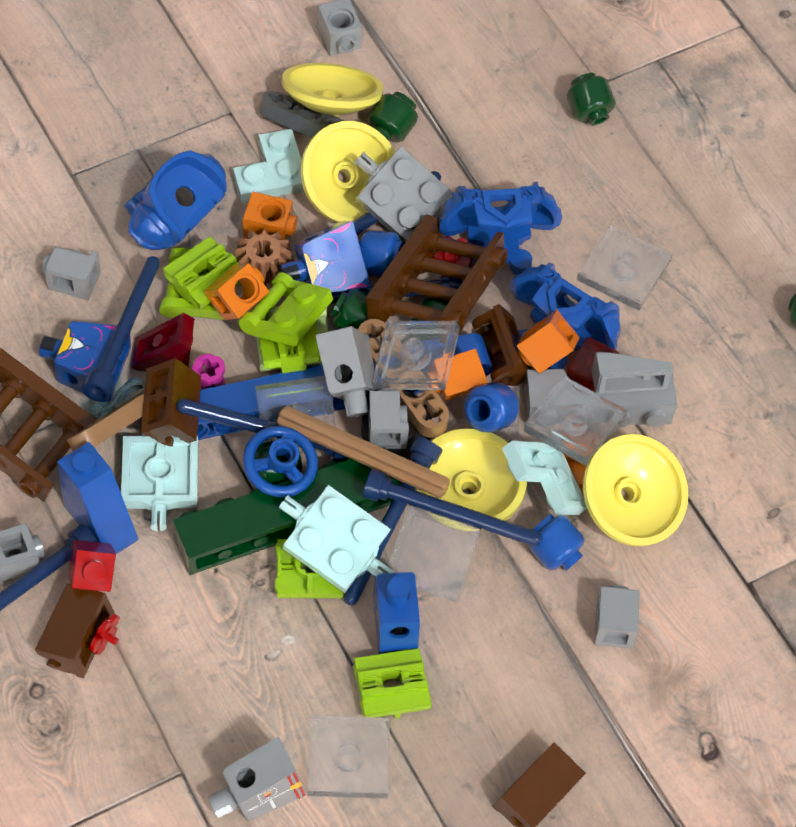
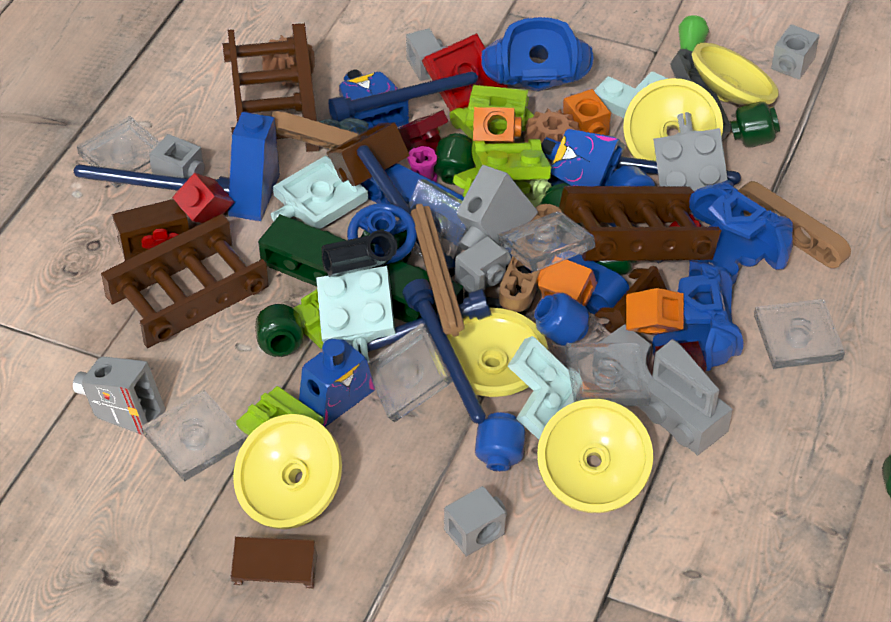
camera: 55 degrees right, 10 degrees down
(121, 262) = (458, 59): none -> red plate
(135, 625) = (173, 256): none -> reddish brown fence
(225, 341) = (453, 156): none -> dark green head
(248, 76) = (692, 32): none -> bright green cone
(295, 614) = (279, 330): none -> dark green head
(304, 494) = (357, 254): none -> black piece
(487, 729) = (270, 463): none -> light yellow dish
(557, 178) = (824, 244): none -> medium nougat beam

